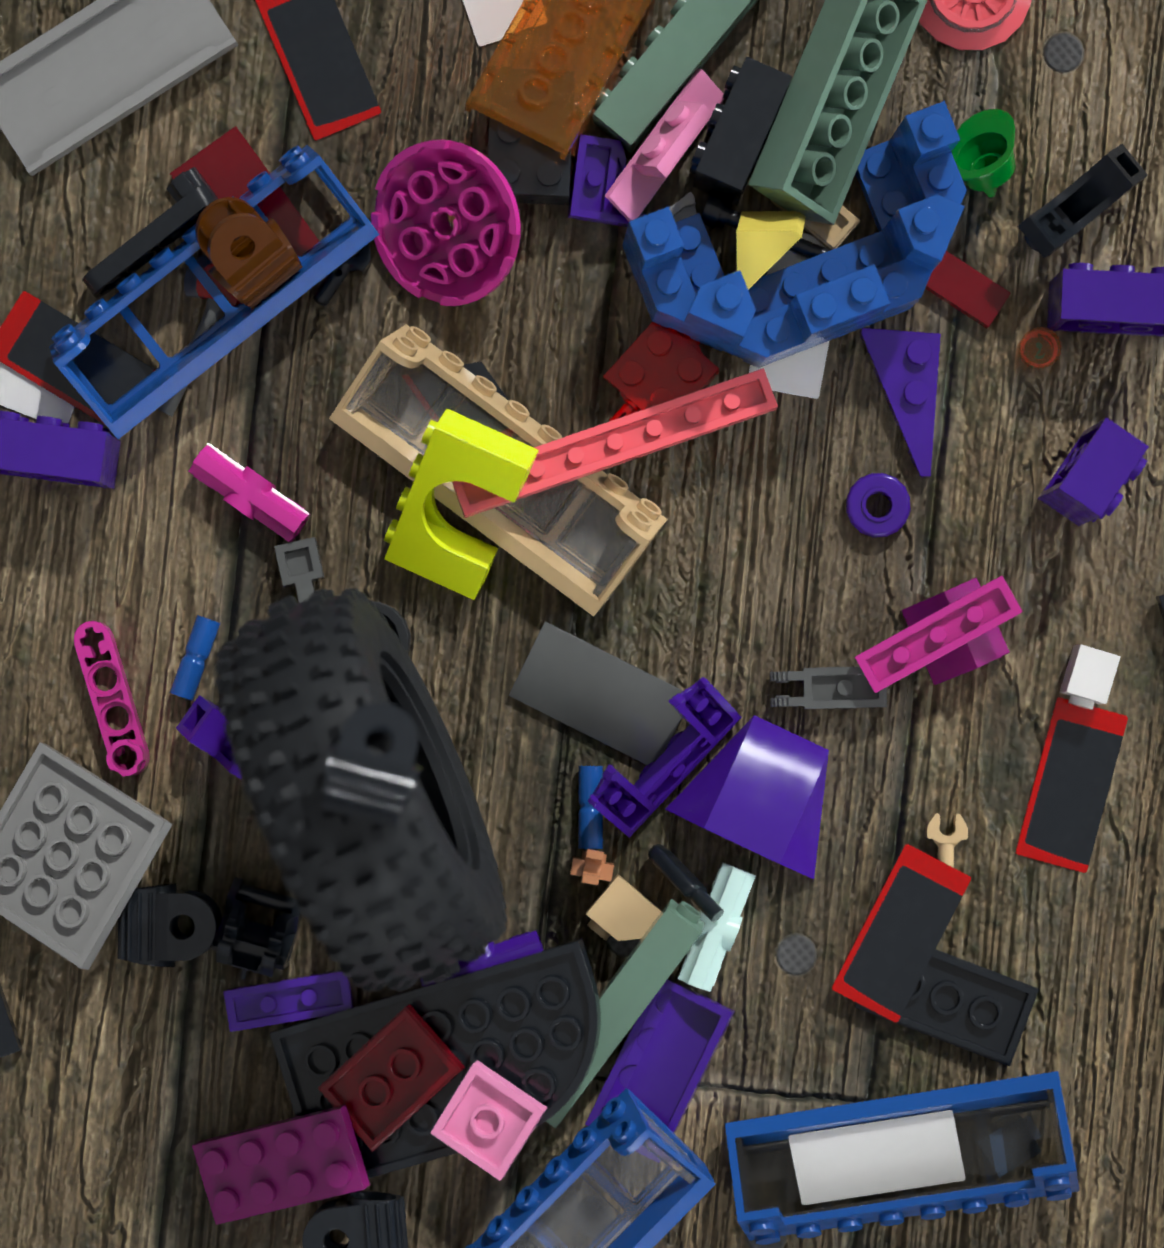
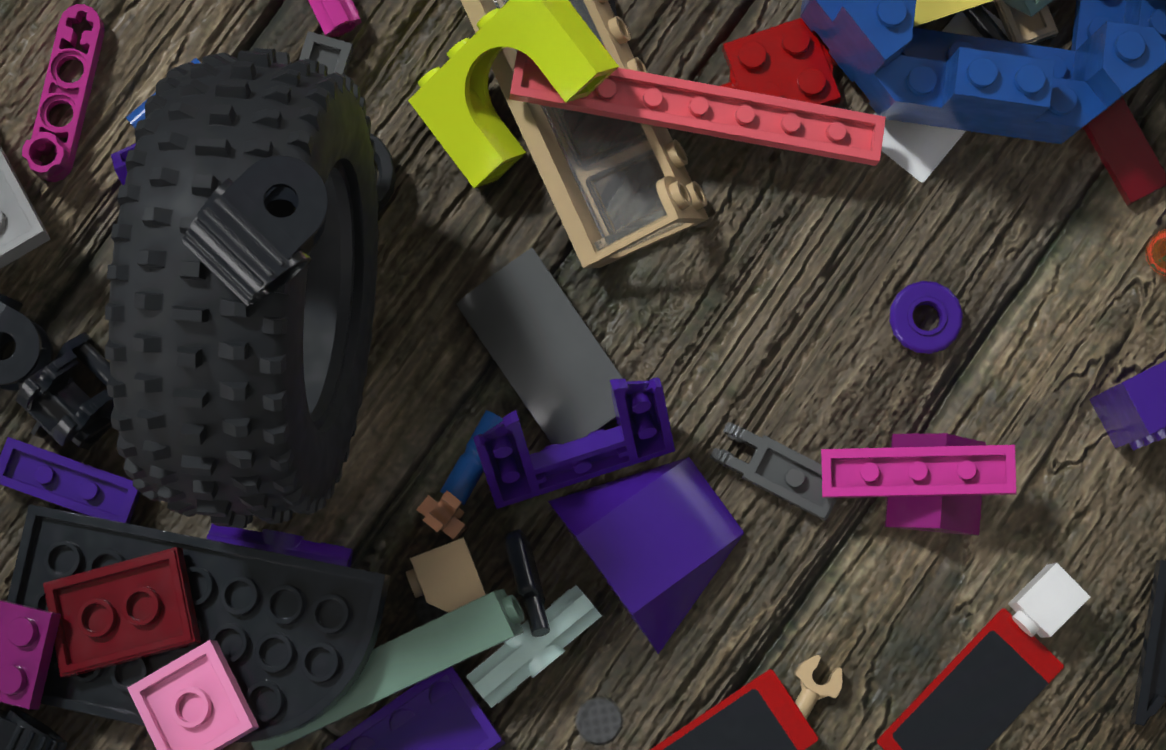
camera: 20 degrees right, 5 degrees down
(909, 375) = (1025, 206): dark purple wing -> none

